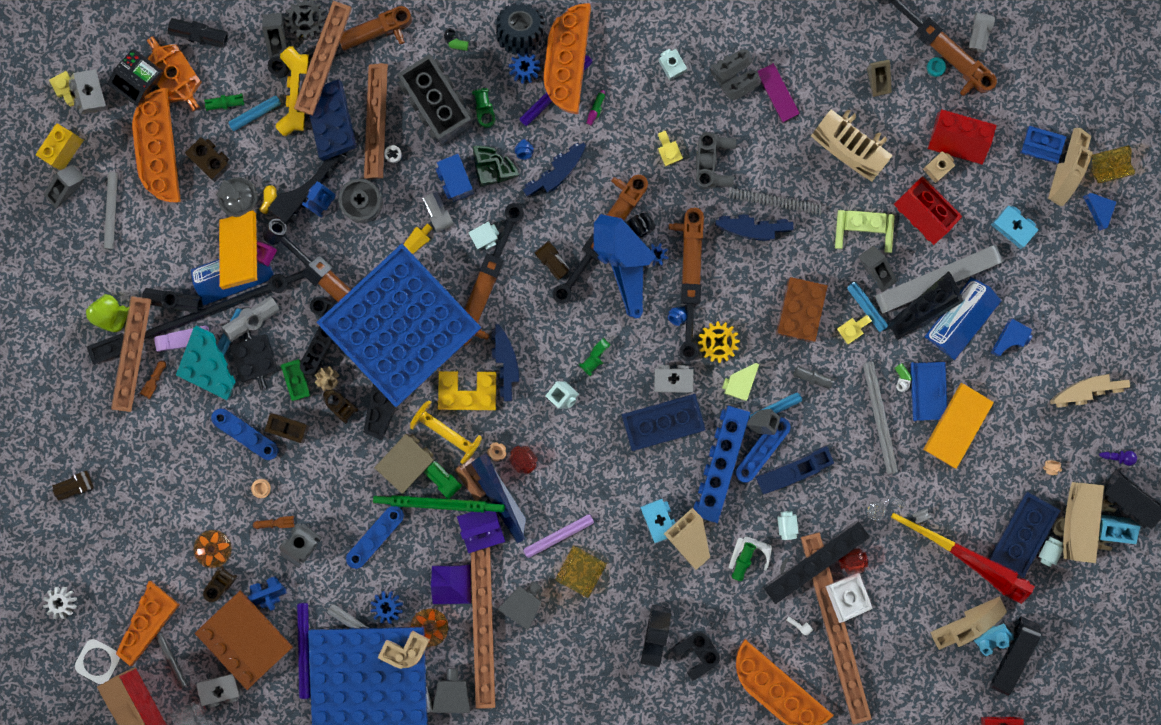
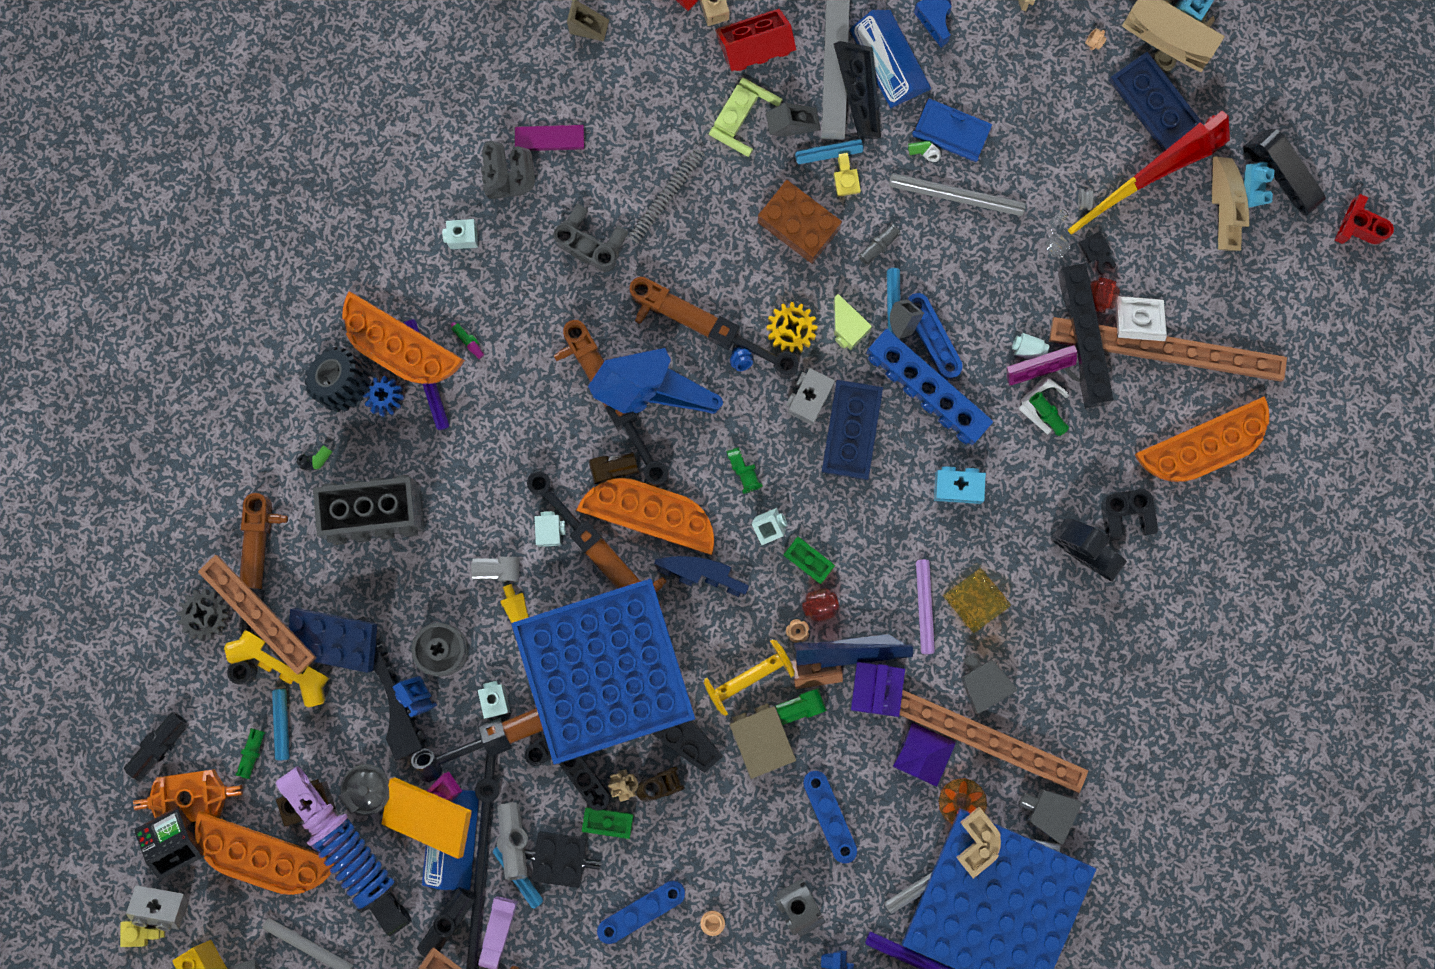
camera: 65 degrees left, 5 degrees down
(184, 212) = (347, 852): none -> piece
(205, 364) = (539, 919): teal plate -> none
(269, 197) = (383, 752): yellow arm -> none
(274, 34) = (202, 658): dark grey slope -> none
(281, 522) = (762, 917): dark orange piece -> none
(287, 428) = (657, 859): dark brown brick -> none
(343, 256) = (493, 700): none -> light aqua brick
(375, 121) = (359, 590): nougat plate -> none
(392, 603) = (917, 832): blue gear -> none
(393, 148) = (399, 585): white bush -> none
(434, 503) = (826, 724): green axle -> none
(451, 399) = (730, 622): yellow plate -> none
(455, 177) = (467, 529): blue brick -> none
(483, 106) = (403, 462): green connector -> none
(491, 167) = (475, 486): dark green brick -> none
(524, 150) = (474, 440): blue plate -> none
(532, 304) = (650, 512): none -> orange plate
(552, 435) = (809, 560): none -> green plate
(563, 167) = (515, 407): dark blue slope -> none
(641, 224) = (621, 345): black gear -> none
(659, 249) = (657, 345): blue gear -> none
(669, 152) = (556, 283): light yellow plate -> none
(690, 538) = (997, 459): tan slope -> none
(746, 228) = (681, 239): dark blue slope -> none
(778, 540) = (1041, 365): none -> magenta tile
(794, 470) = (974, 312): dark blue slope -> none
(805, 629) = (1154, 383): white hand -> none
(851, 145) = (645, 83): tan piece -> none
(888, 541) = (1096, 249): none -> black plate
(958, 425) = (1005, 116): light orange tile -> none
(1051, 552) = (1187, 82): light aqua brick -> none

